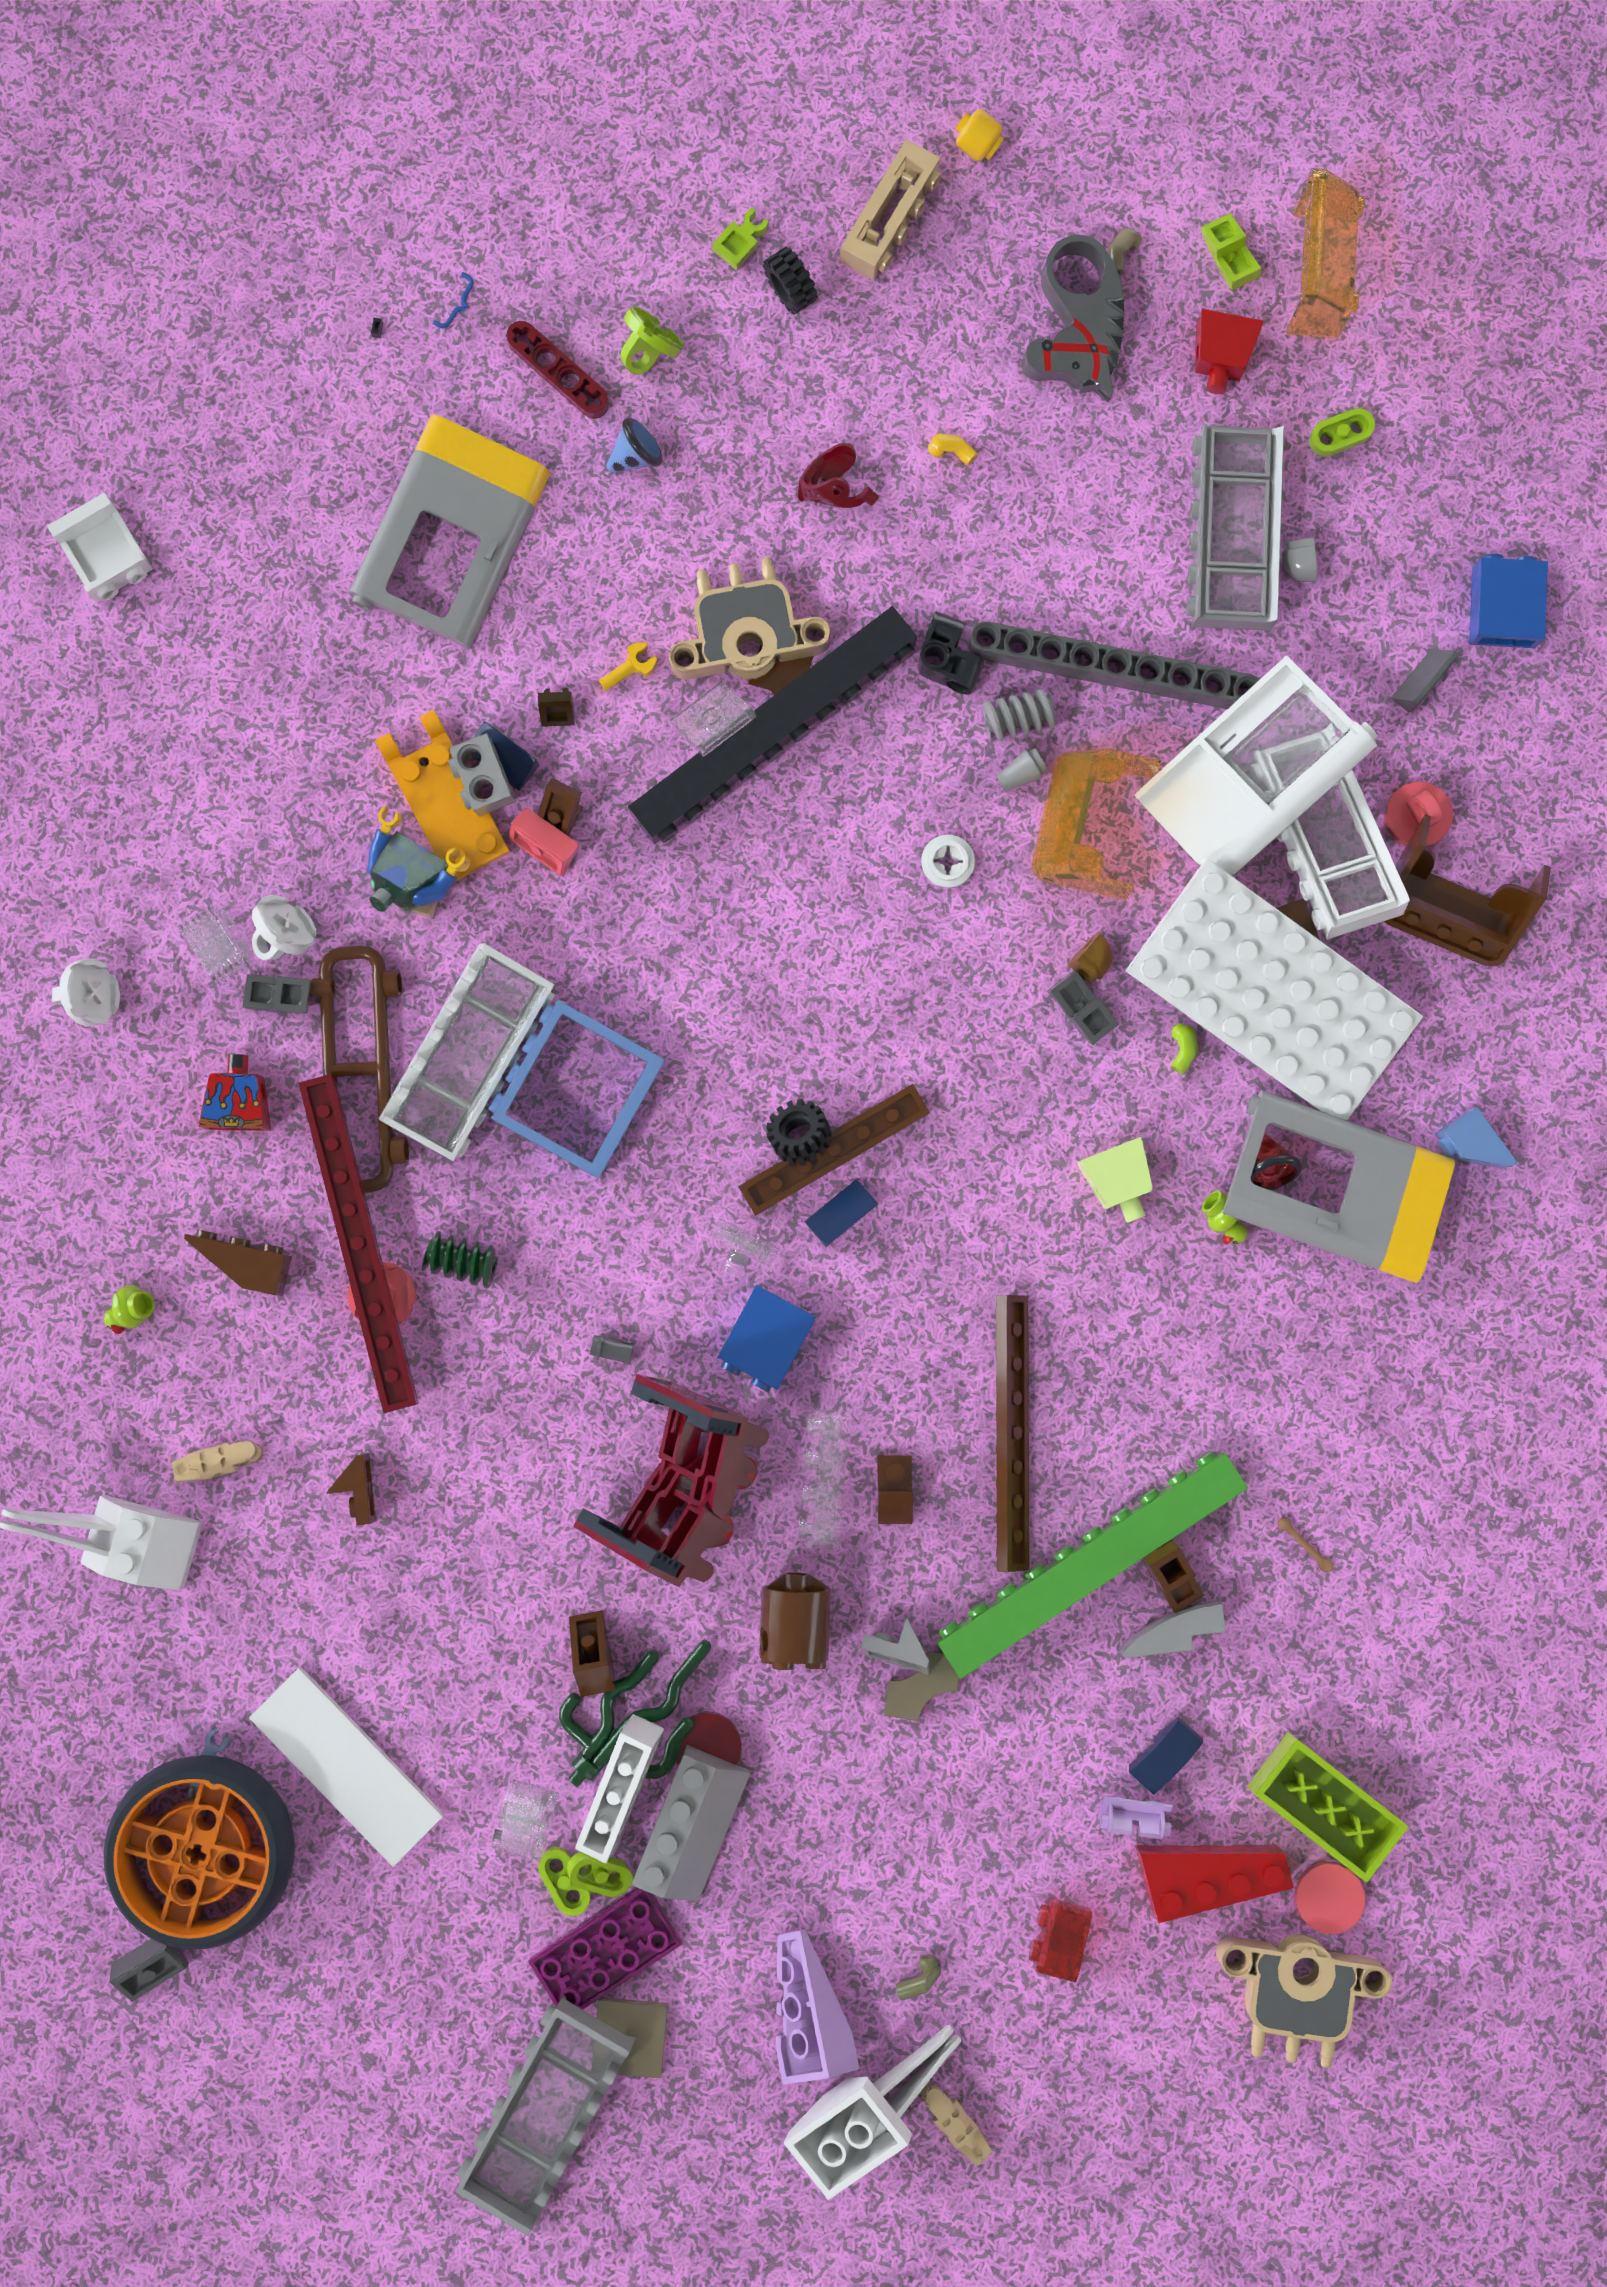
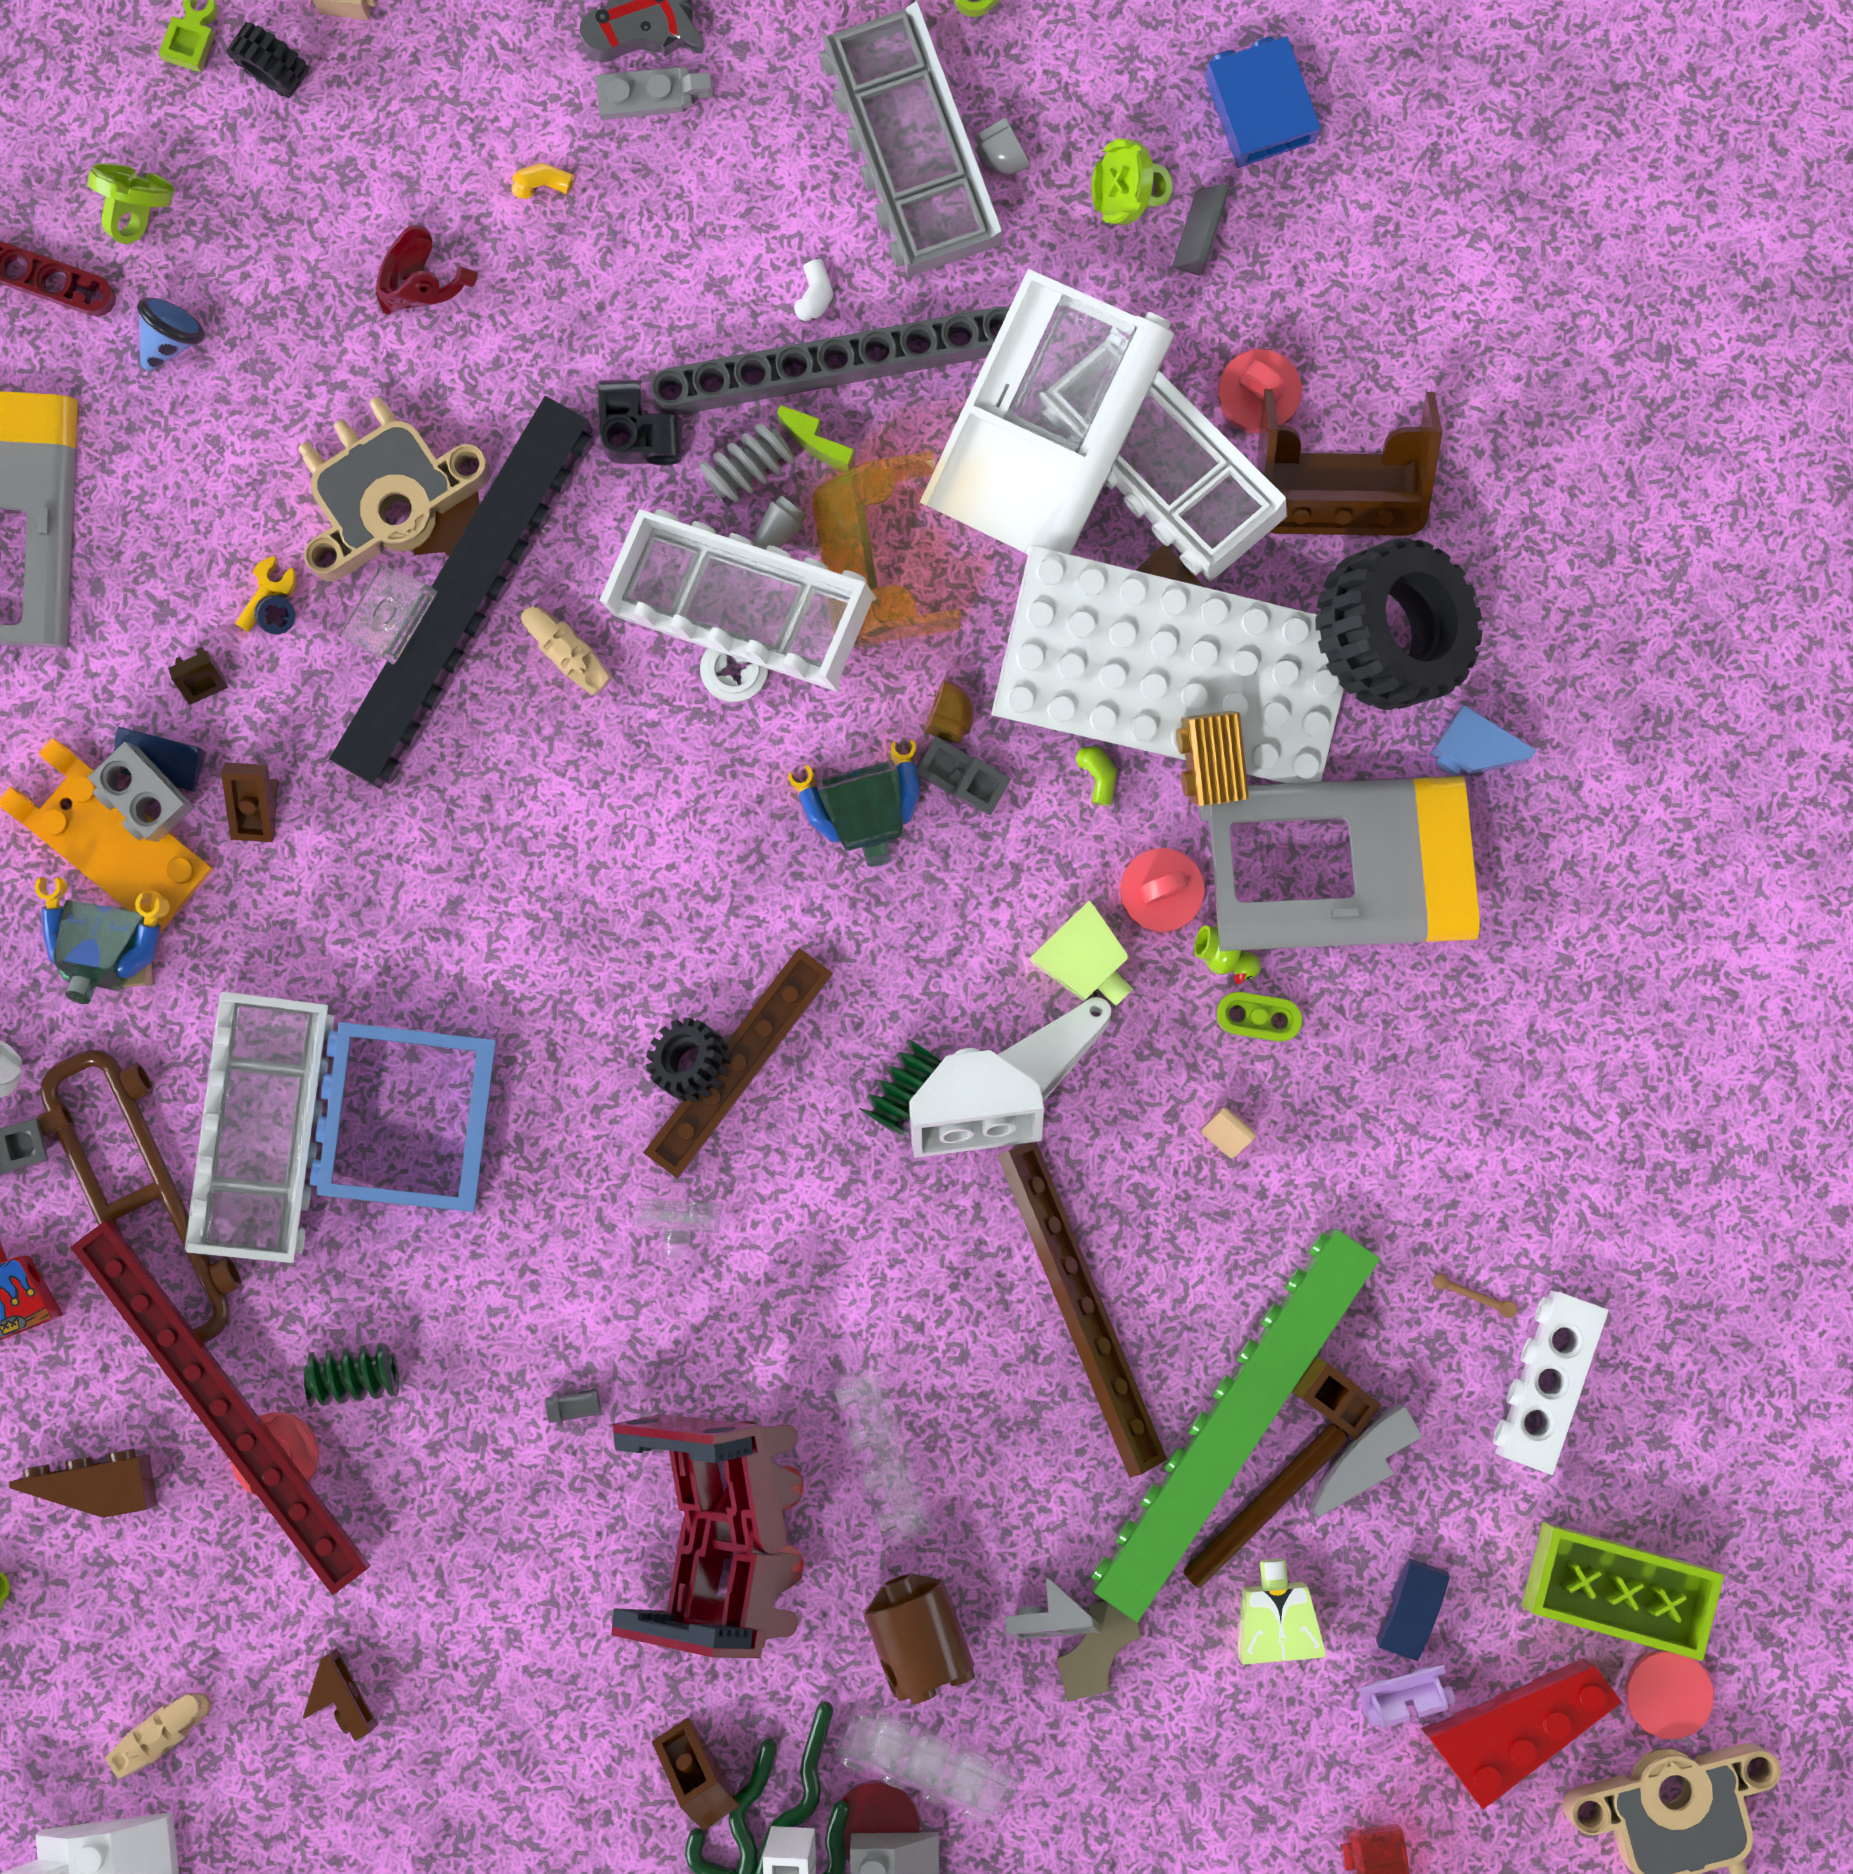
camera: 25 degrees left, 0 degrees up
(542, 841) = (246, 840): coral slope -> none
(637, 678) = (271, 627): none -> dark blue bush
(764, 1715) = (927, 1761): none -> clear slope
(765, 1339) = (749, 1318): blue brick -> none
(831, 798) = (566, 650): none -> tan hinge
(841, 1213) = (777, 1133): dark blue slope -> none
(894, 1489) = (972, 1431): reddish brown slope -> none
(949, 1218) = (906, 1082): none -> dark green piece
(974, 810) = (738, 597): none -> window
(1003, 998) = (863, 804): none -> clear green torso
(1016, 1254) = (998, 1099): none -> white slope
(1058, 415) = (650, 92): none -> light grey hinge
(1063, 1720) = (1278, 1619): none -> yellowish green torso
(1070, 709) = (805, 432): none -> lime slope
(1088, 1633) = (1265, 1505): none -> reddish brown axle
(1122, 612) = (817, 295): none -> white arm
(1172, 1349) = (1228, 1132): none -> tan slope
(1196, 1152) = (1162, 890): none -> coral tile
(1228, 1274) = (1258, 1016): none -> lime plate
(1276, 1069) = (1213, 758): none -> pearl gold brick
(1278, 1165) = (1257, 869): clear red hat -> none
(1355, 1627) = (1557, 1406): none -> white brick
(1383, 620) = (1125, 181): none -> lime tile
(1485, 1035) = (1438, 612): none -> black tyre

